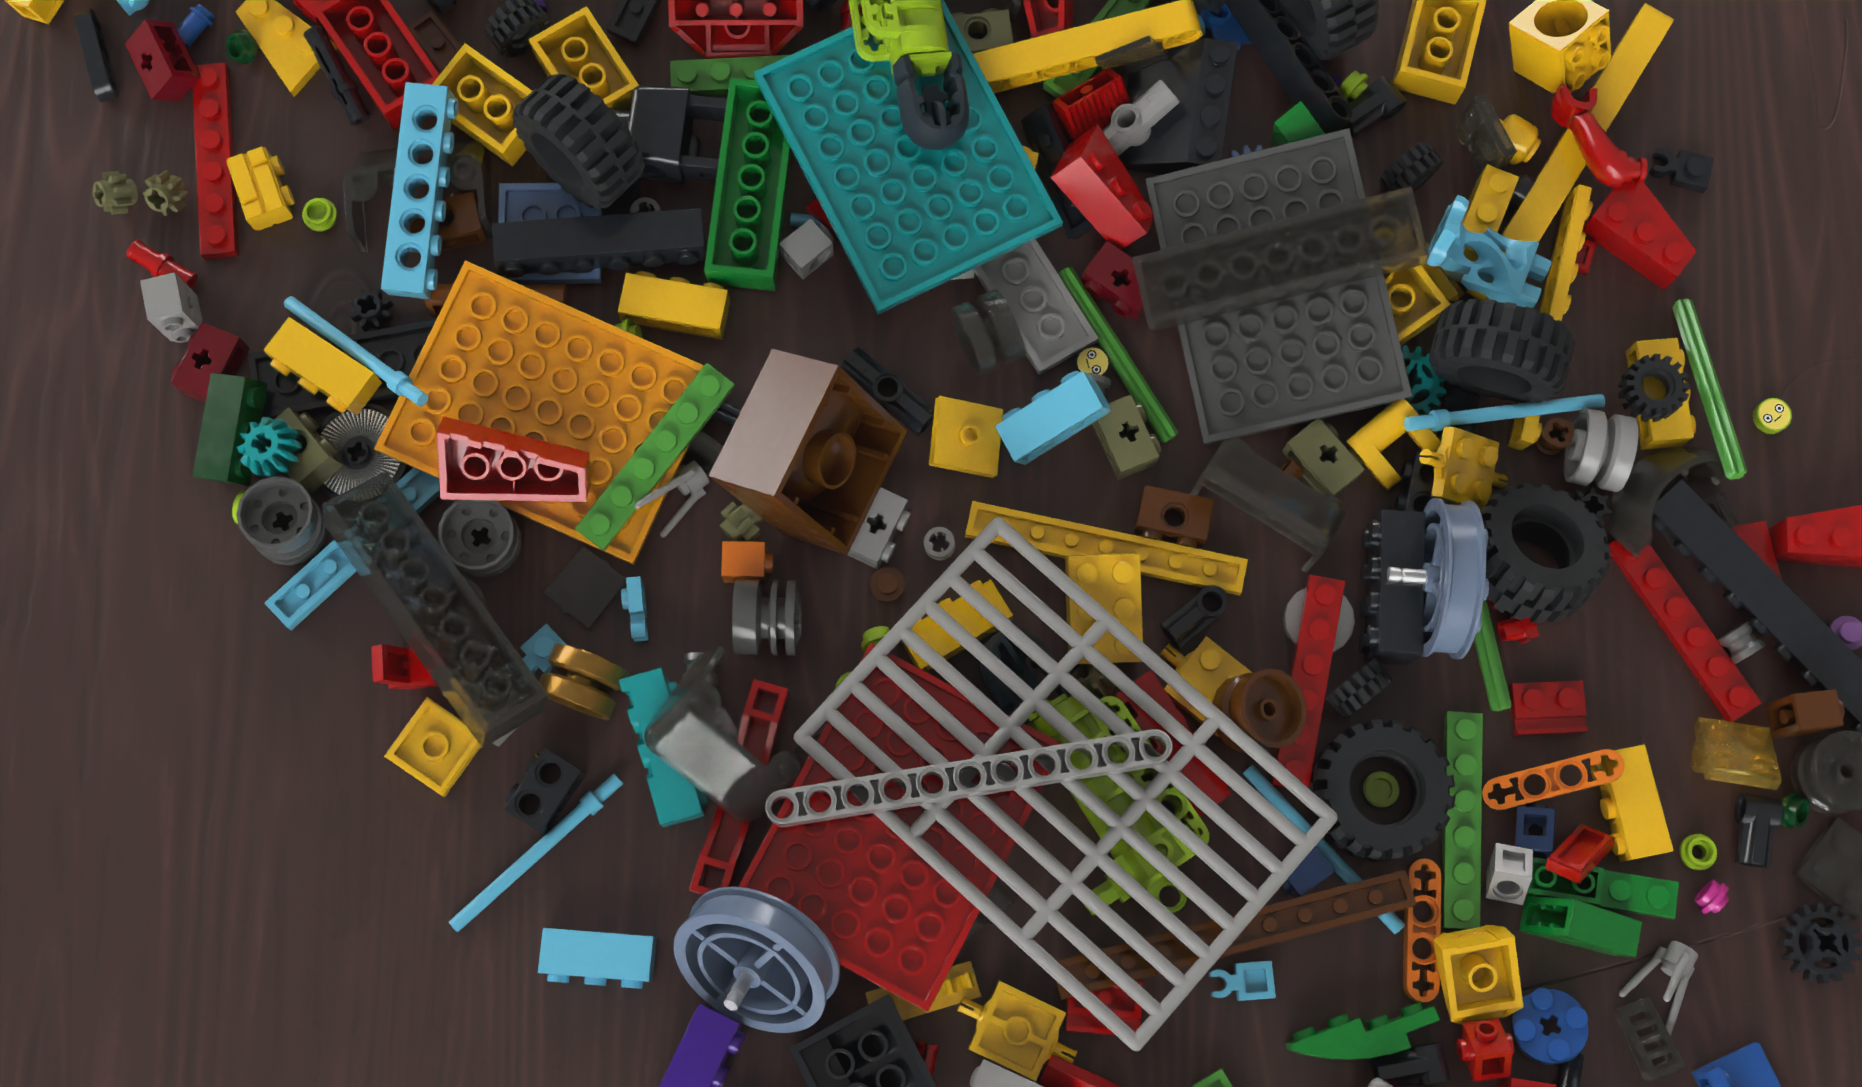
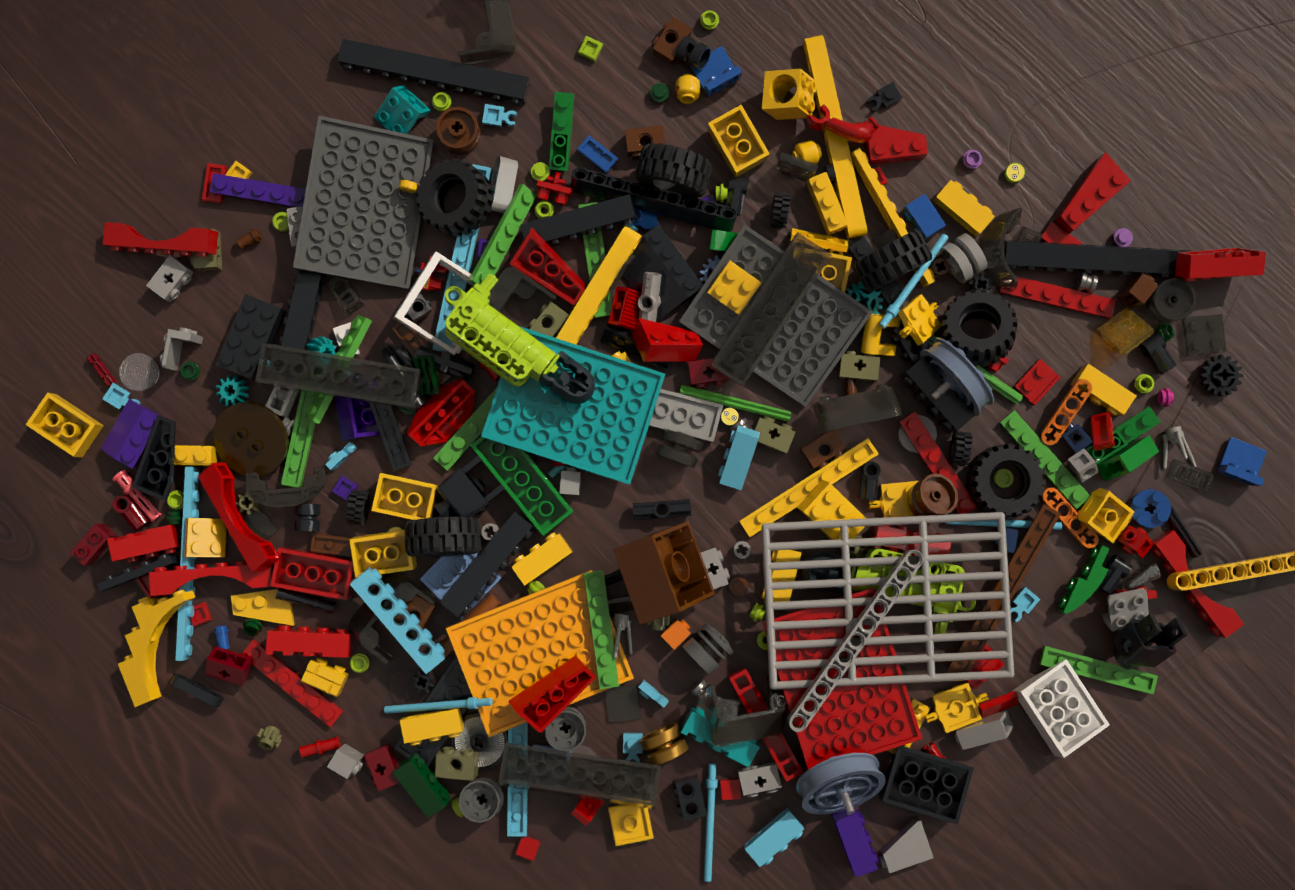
camera: 40 degrees left, 10 degrees up
(165, 193) = (289, 717): olive gear -> none
(269, 447) = (455, 782): teal gear -> none
(274, 647) = (528, 847): none -> red tile
(285, 124) = (309, 641): none -> red wedge
(607, 836) = (730, 789): none -> red tile
(638, 848) = (749, 777): none -> light grey brick
(965, 437) = (711, 497): yellow plate -> none
(1258, 192) = (734, 287): none -> yellow plate
(1494, 273) = (861, 220): medium azure hips -> none
(1595, 355) = (923, 216): none -> blue brick
(1667, 374) = (967, 202): black tyre -> none
(1709, 389) = (982, 189): bright green axle -> none
(1730, 346) = (972, 159): none -> medium lavender plate

